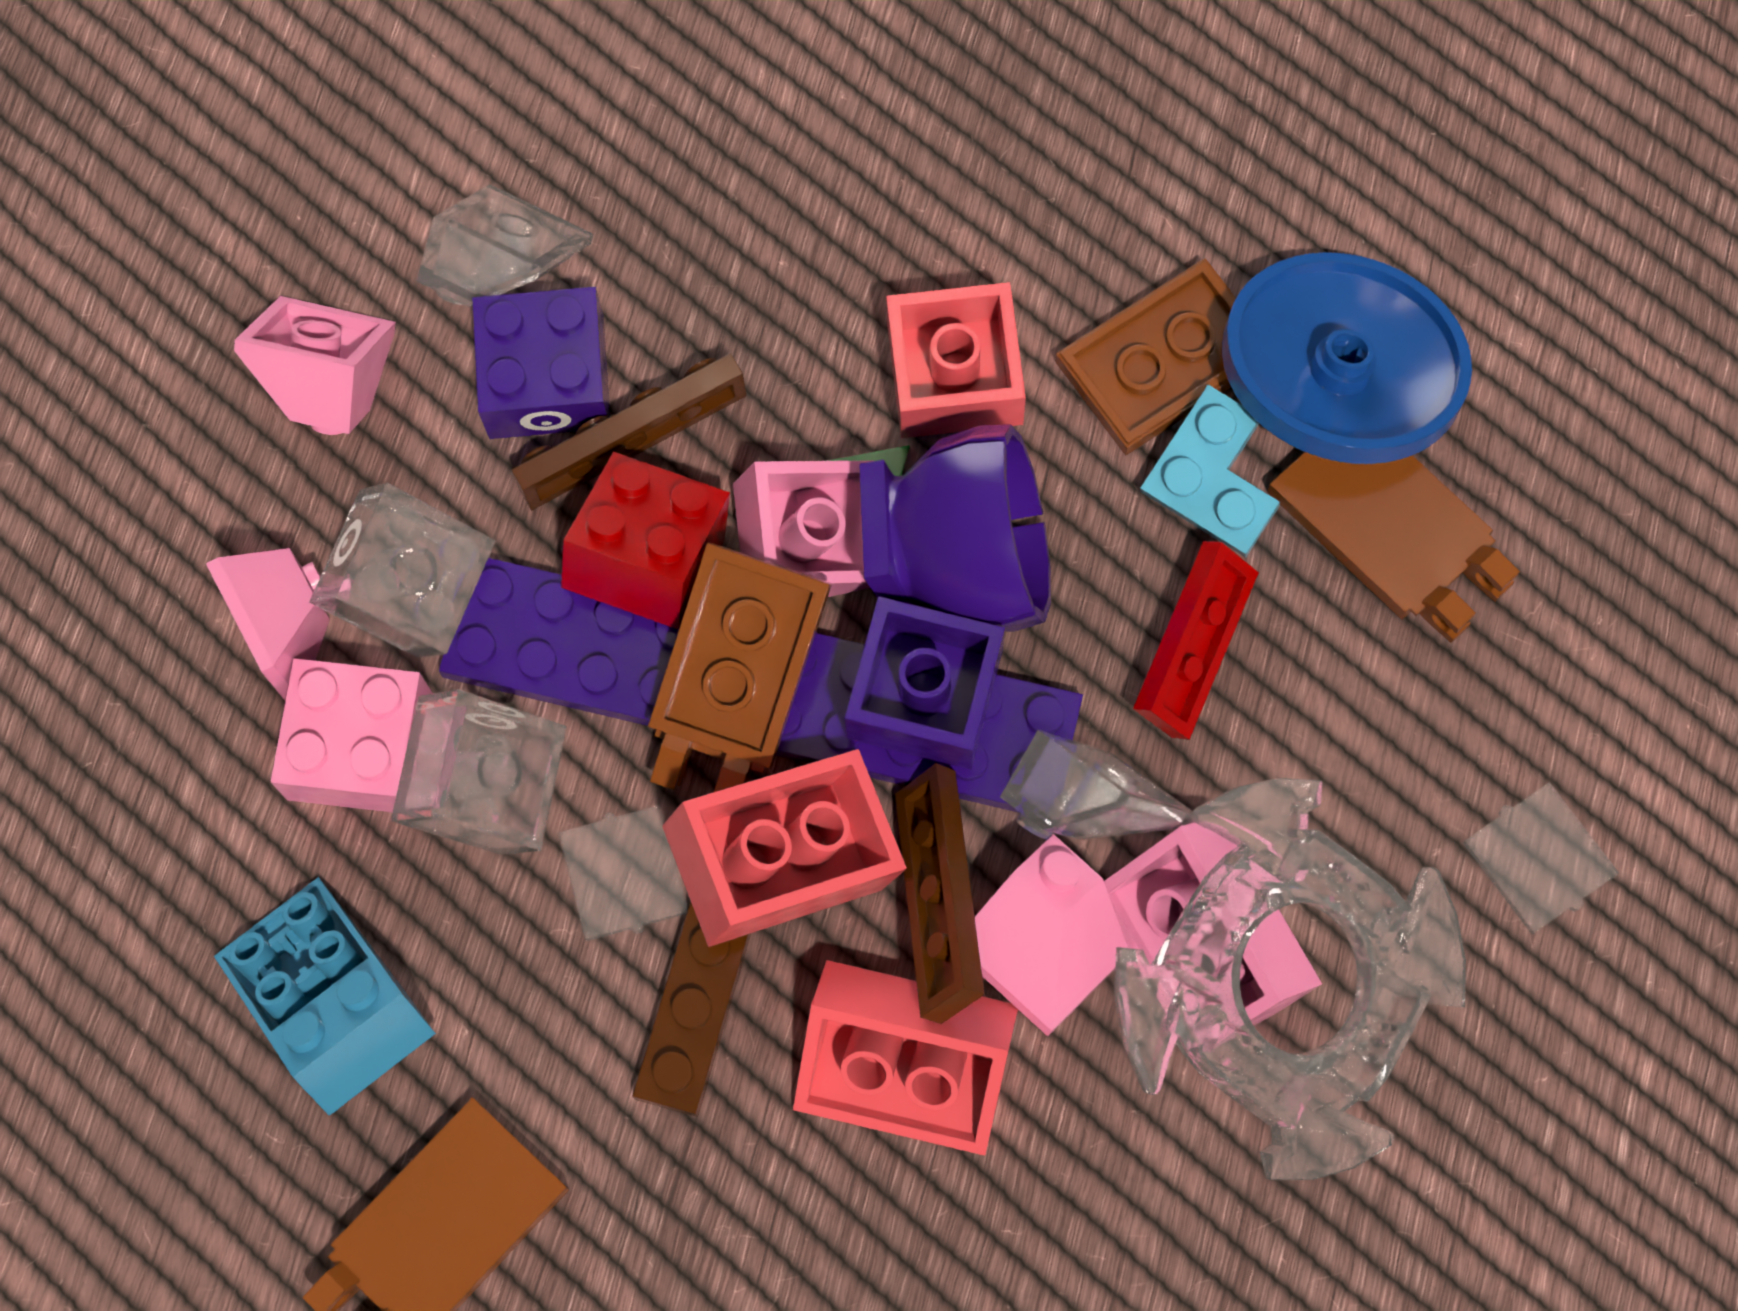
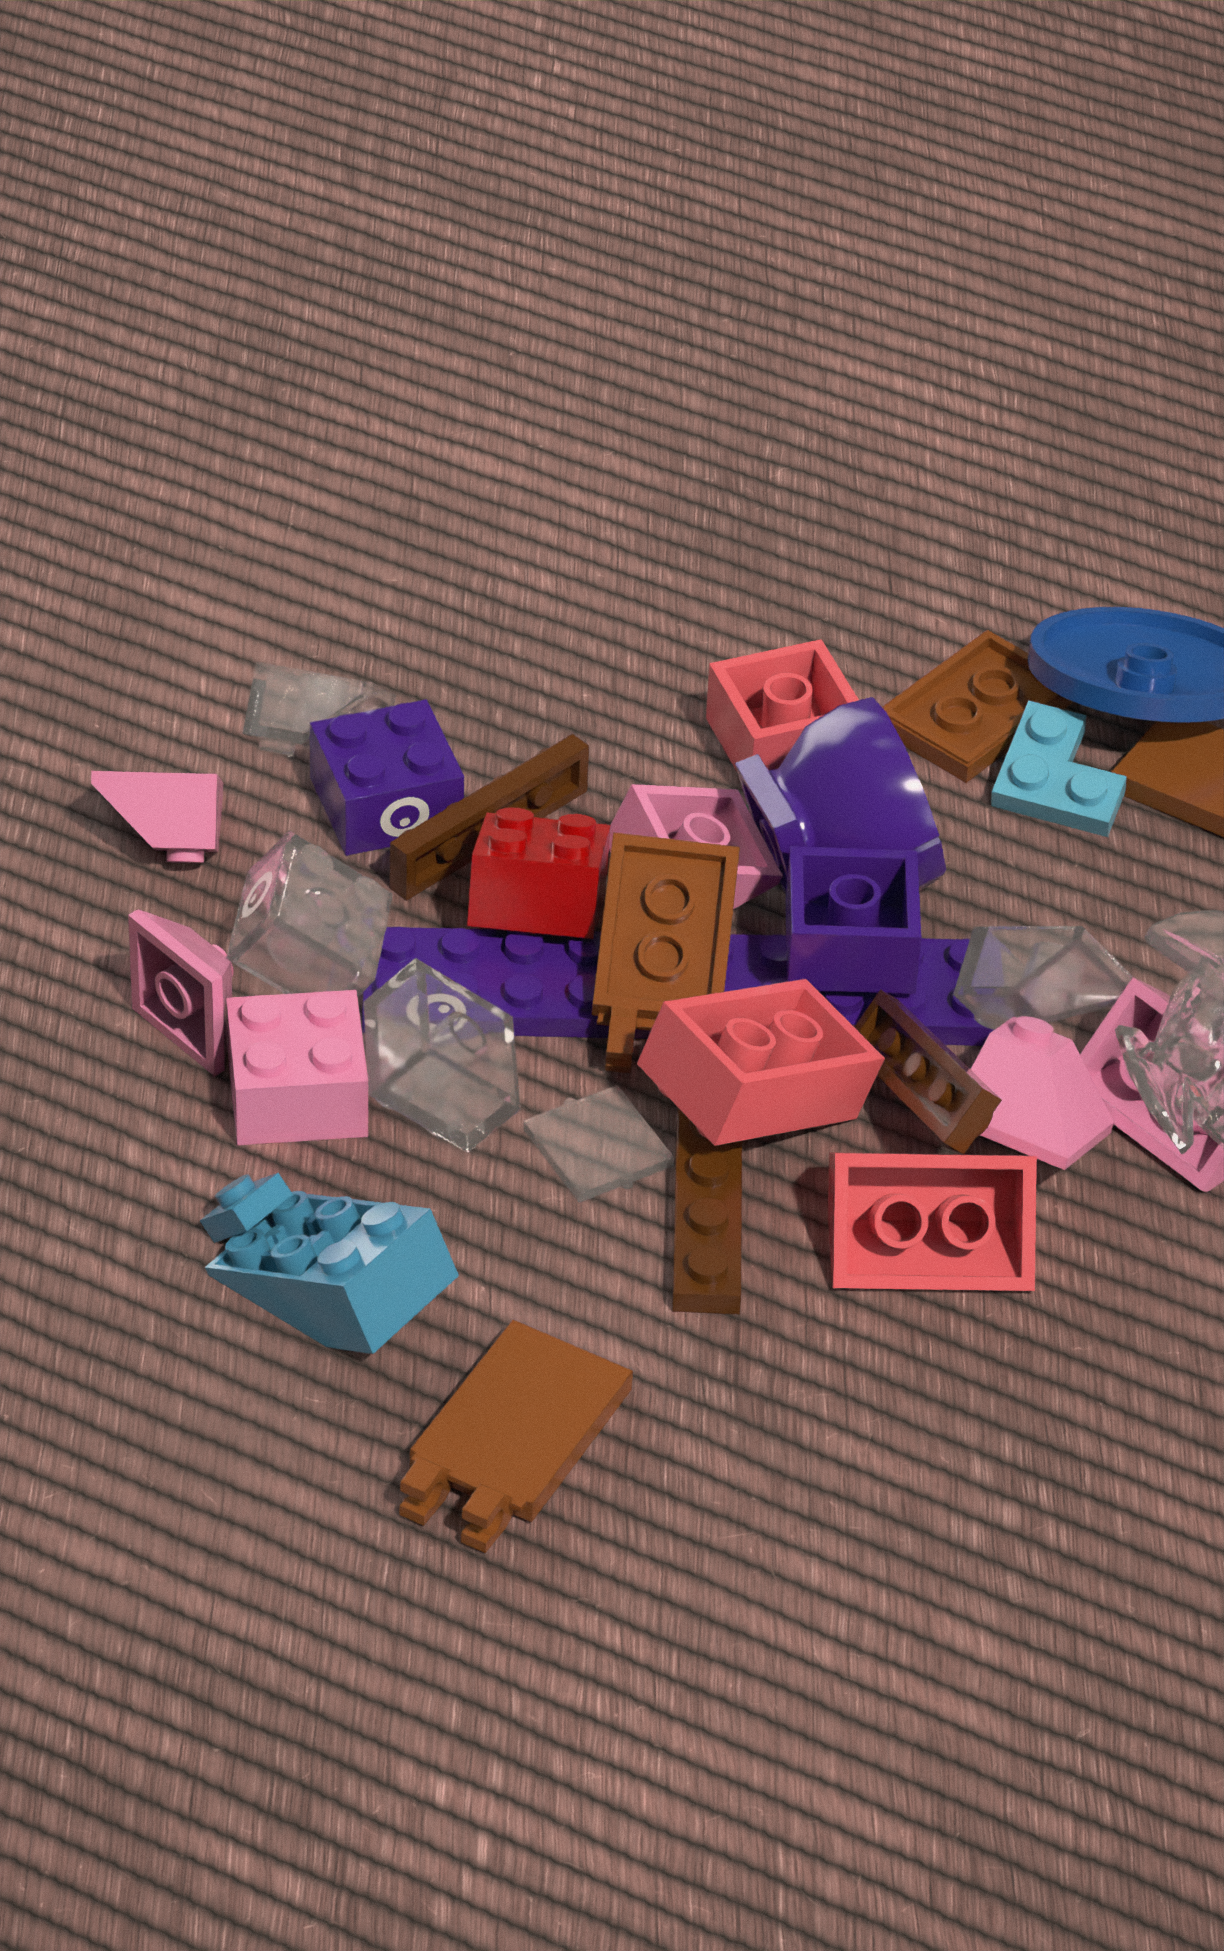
camera: 20 degrees left, 30 degrees down
(259, 904) = (244, 1205): none -> dark azure plate
(1196, 640) = (1089, 873): red plate -> none

